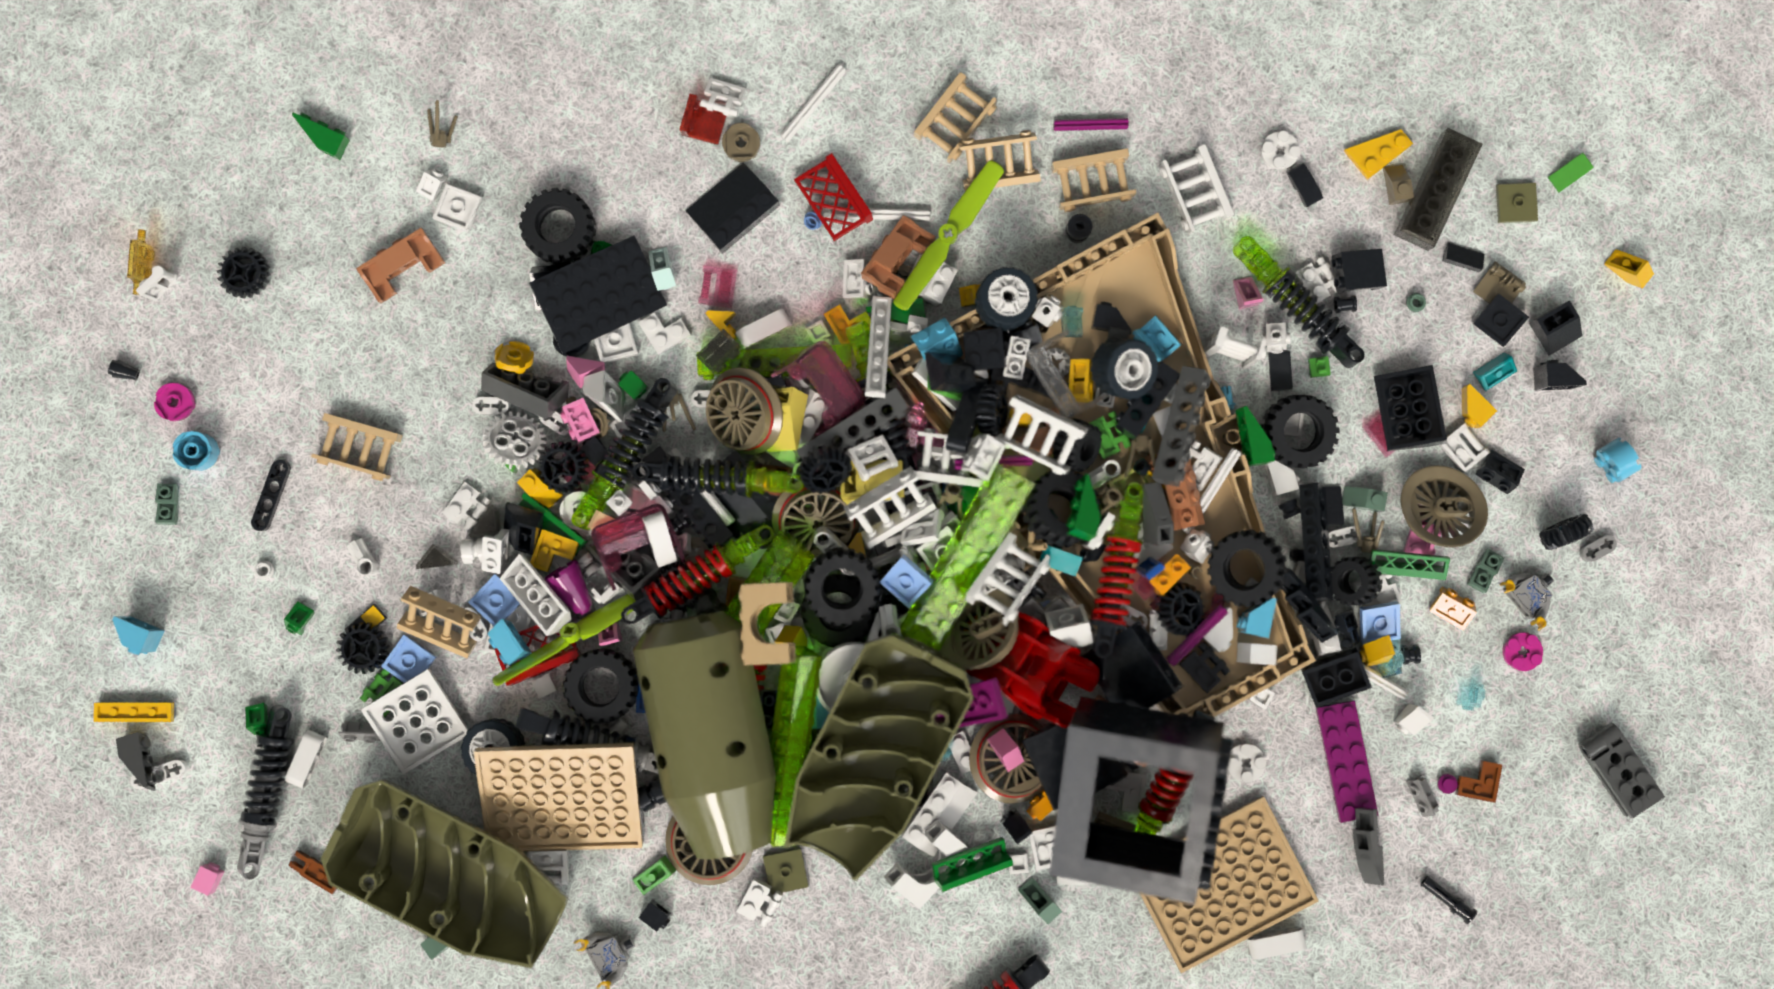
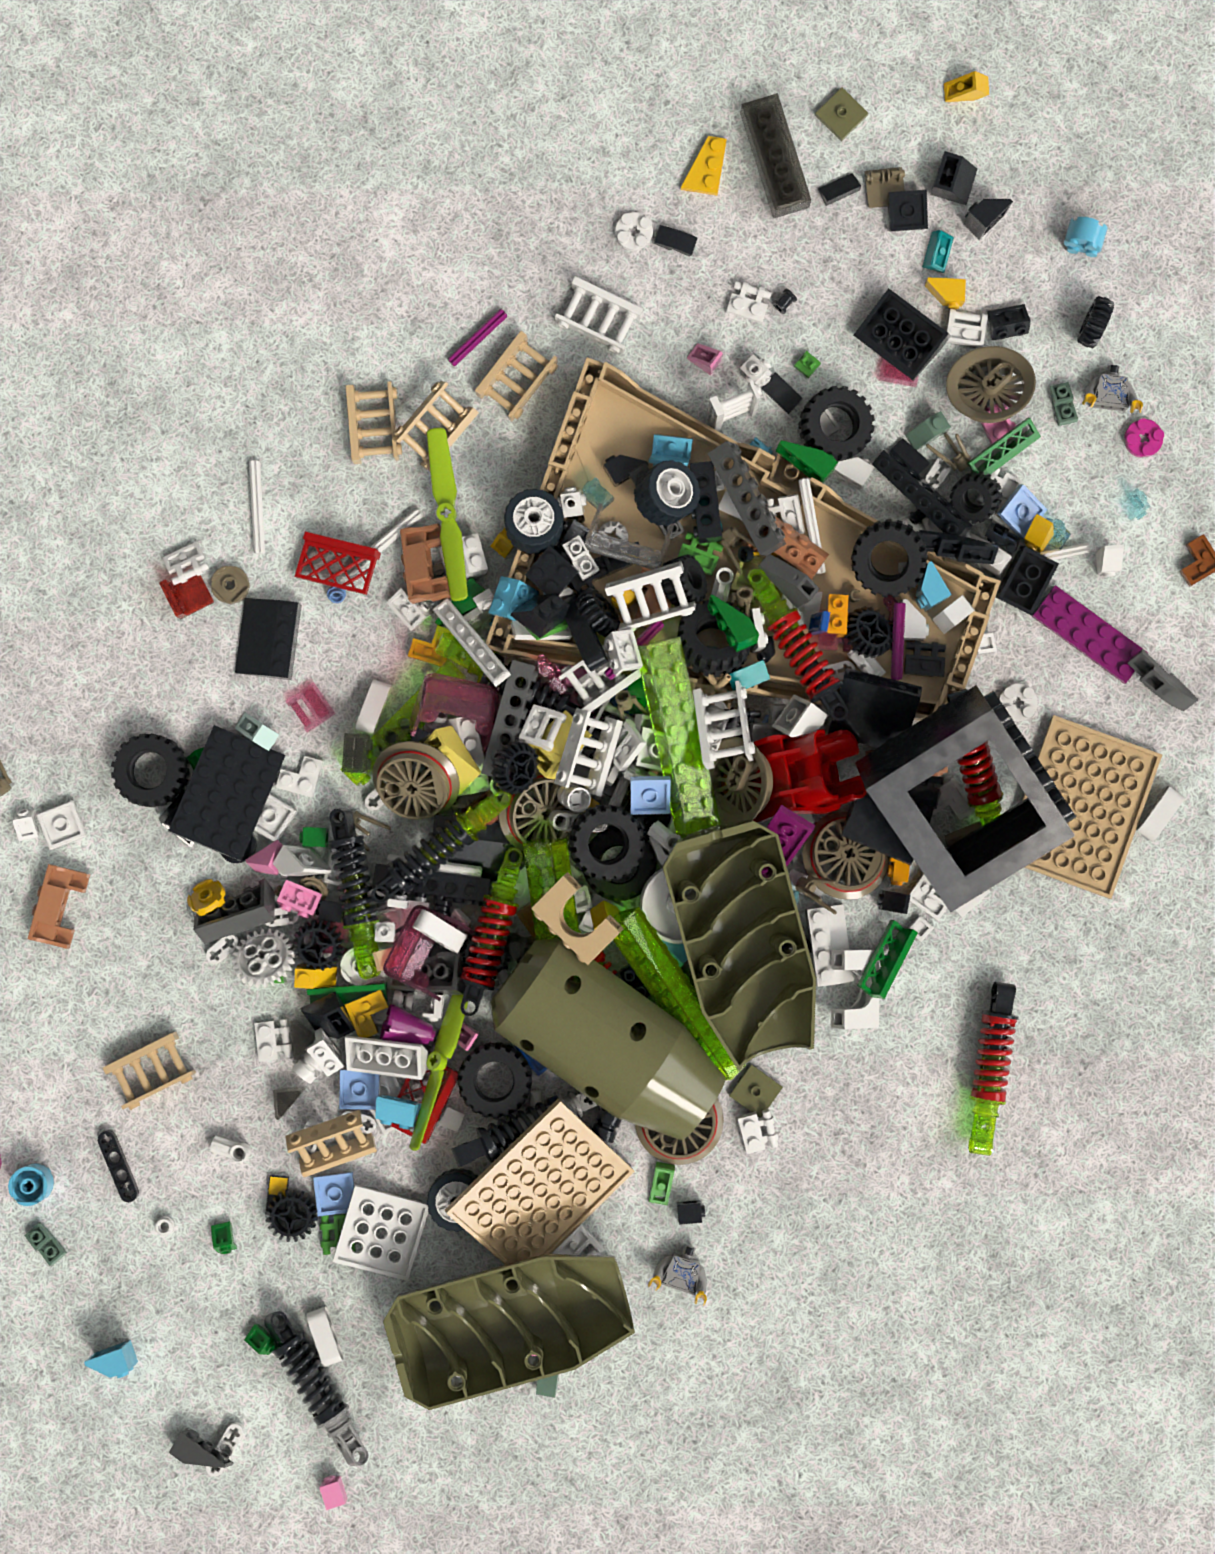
camera: 40 degrees left, 0 degrees up
(134, 712) = (163, 1420): yellow plate -> none
(312, 871) = (407, 1413): dark orange hinge -> none
(353, 732) = (342, 1284): light grey hinge -> none
(720, 318) = (334, 729): yellow slope -> none
(818, 331) = (415, 673): tile -> none
(848, 531) = (574, 797): none -> white wheel
(961, 756) = (807, 887): none -> dark tan plant
(1006, 749) = (835, 852): bright pink slope -> none
(1040, 900) = (961, 940): sand green slope -> none
(1078, 228) = (538, 421): black wheel -> none
(1081, 380) = (643, 530): yellow brick -> none
(1197, 545) = (838, 575): white brick -> none
(1282, 285) = (735, 329): black piece -> none
(1289, 508) = (880, 487): black wheel -> none
(1359, 270) = (772, 267): black panel -> none
(1398, 185) = (743, 179): dark tan slope -> none
(1411, 654) = (1065, 513): black wheel -> none
(1420, 298) = (834, 247): sand green plate -> none
(1426, 804) = (1175, 613): light grey hinge -> none
(1447, 783) = (1177, 584): magenta plate -> none
(1453, 608) = (1065, 452): bracket -> none
(1570, 172) = (860, 56): bright green slope -> none
(1600, 552) = (1125, 312): light grey beam -> none

